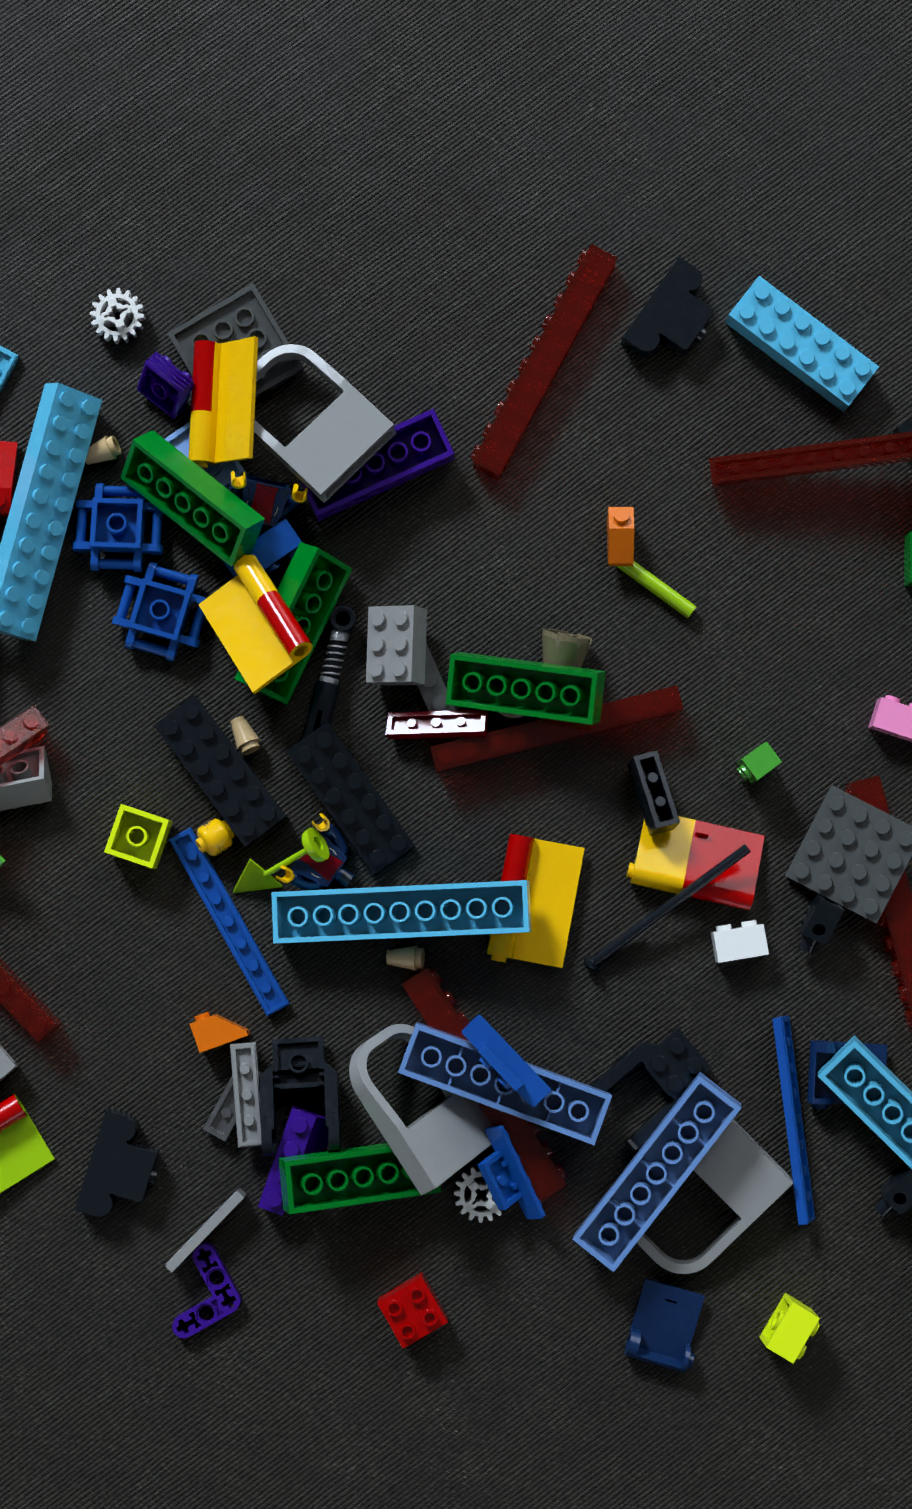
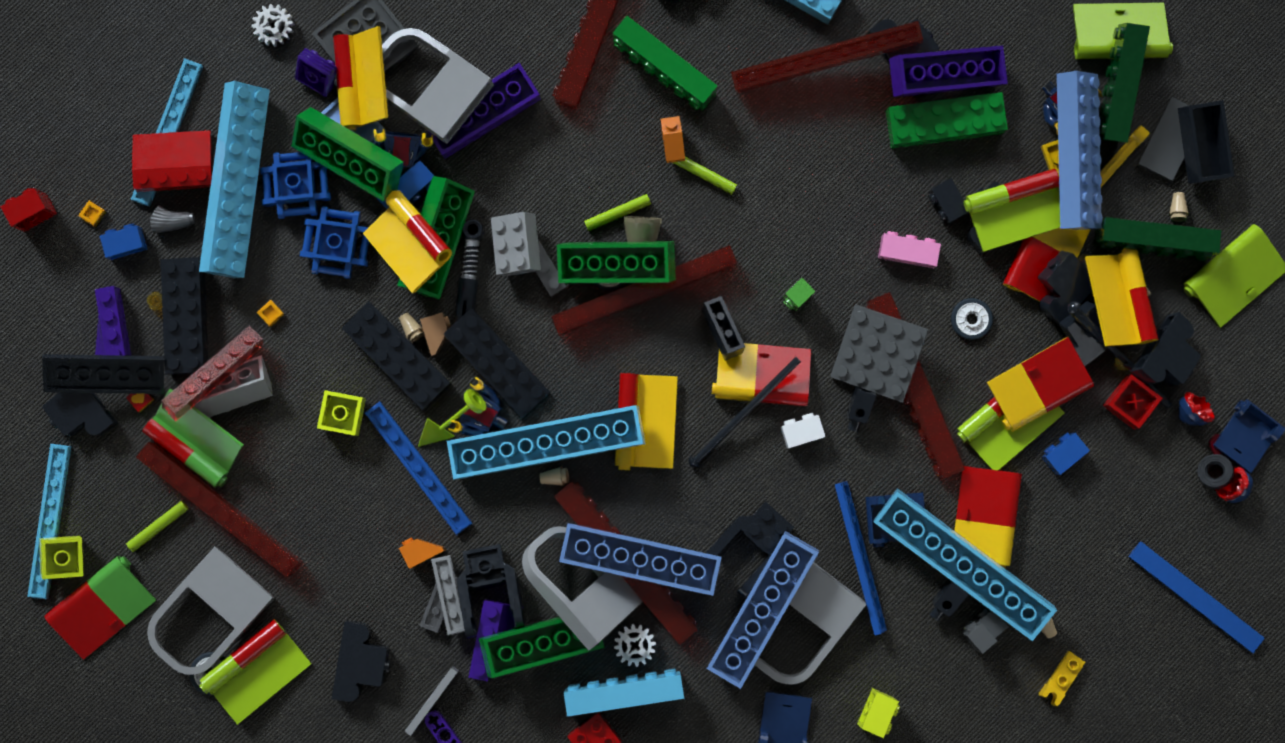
camera: 10 degrees left, 0 degrees up
(63, 692) = (270, 313): none -> light orange tile
(103, 450) = (276, 127): tan cone -> none
(214, 837) = (398, 406): yellow head -> none
(274, 742) = (433, 328): none -> medium nougat slope
(437, 724) = (554, 298): plate -> none
(459, 1255) = (623, 693): none -> medium azure brick
(506, 1061) = (639, 542): blue bracket -> none
(507, 1177) = (652, 629): blue bracket -> none
(535, 621) = (617, 212): none -> lime piece
(622, 435) = (664, 63): none -> green brick

